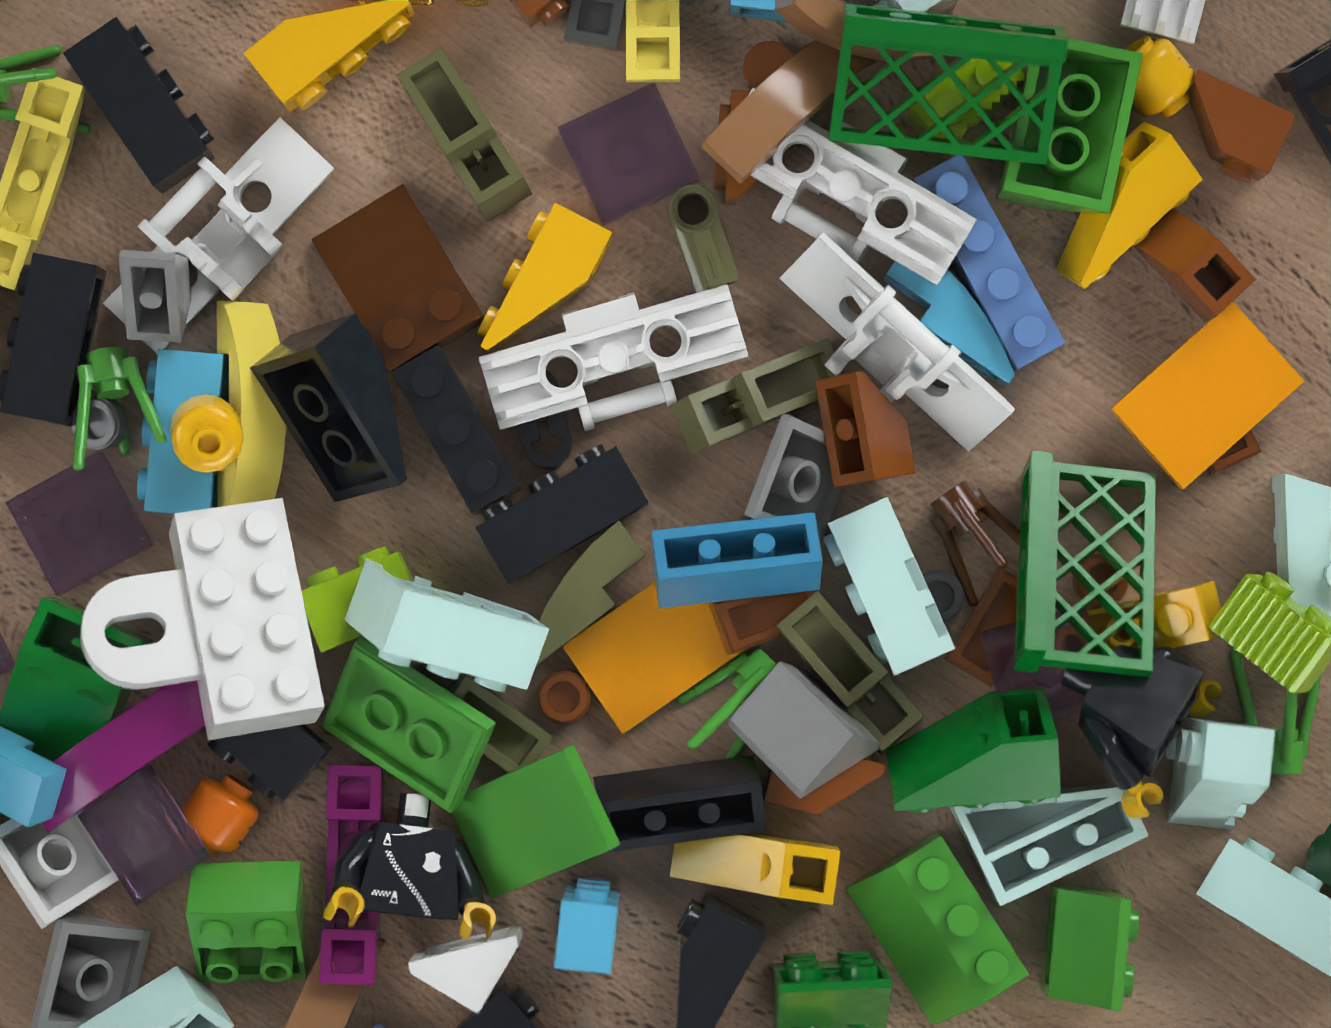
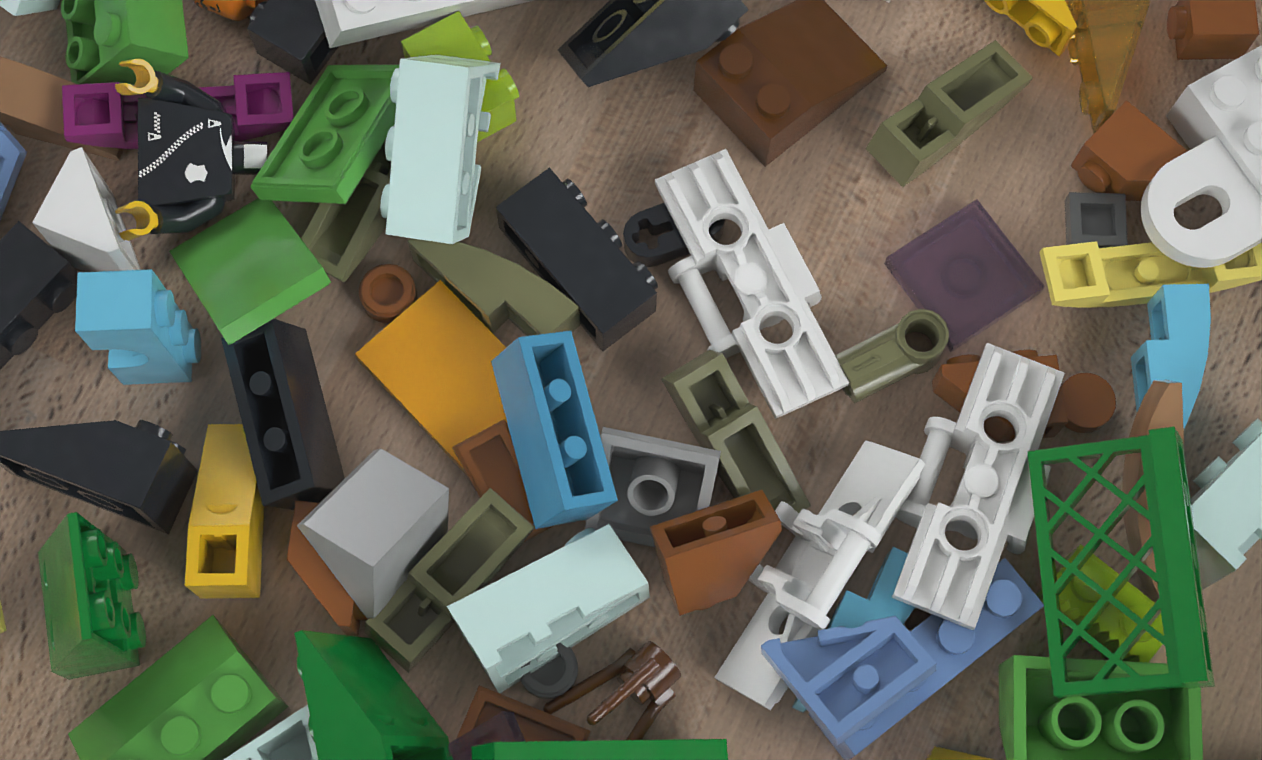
camera: 80 degrees right, 15 degrees down
(456, 430) = (648, 142): black brick -> none
(557, 268) = (828, 214): yellow slope -> none
(750, 672) = (438, 468): bright green plant -> none
(778, 108) = (1051, 392): medium nougat slope -> none
(1000, 335) = (851, 672): none -> medium blue wing

